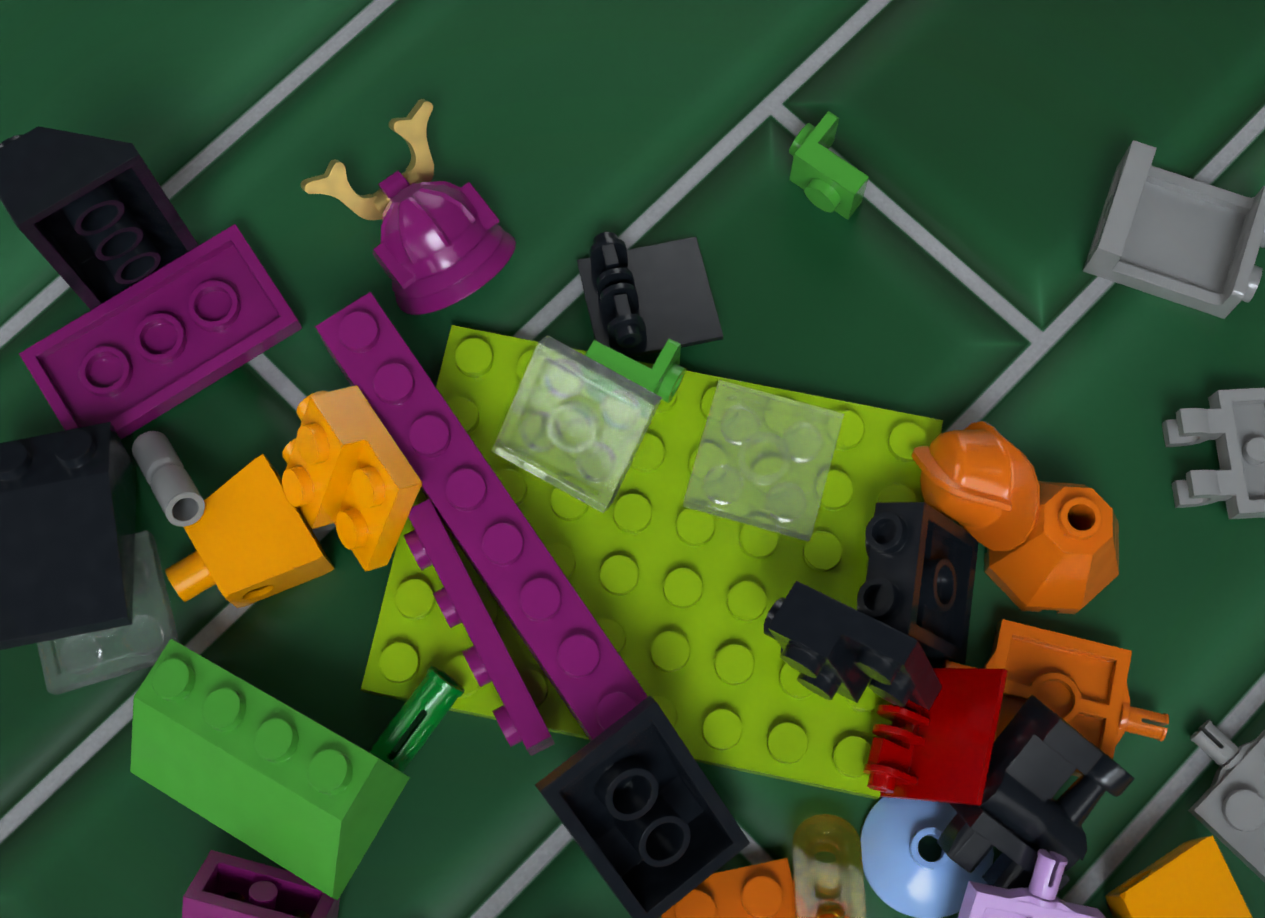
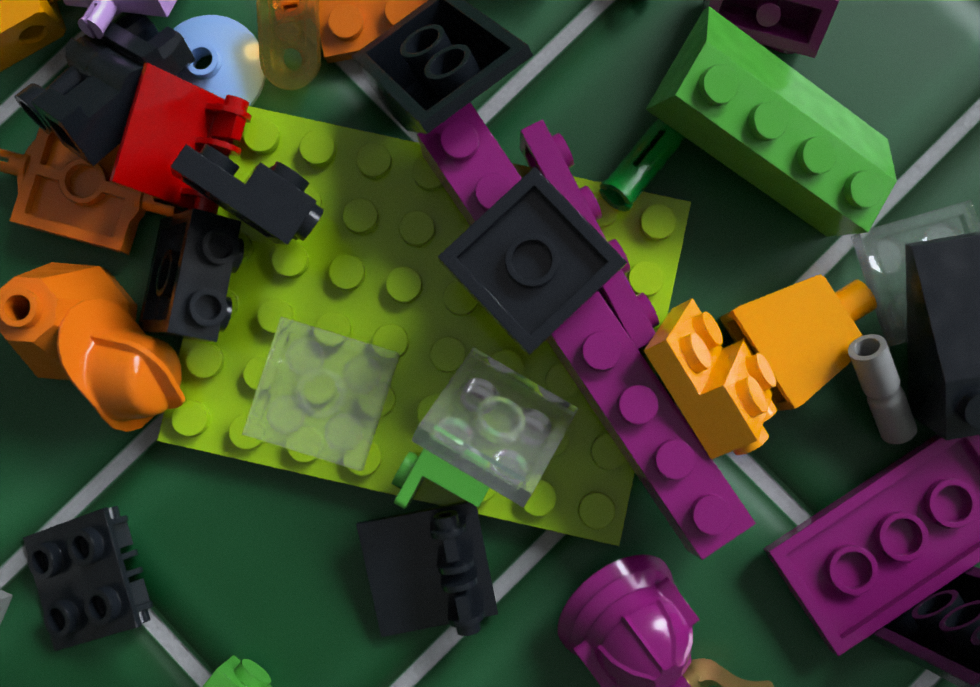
camera: 175 degrees left, 10 degrees up
(537, 568) = (531, 261): none -> black plate
(1003, 283) = (85, 578): none -> black hinge

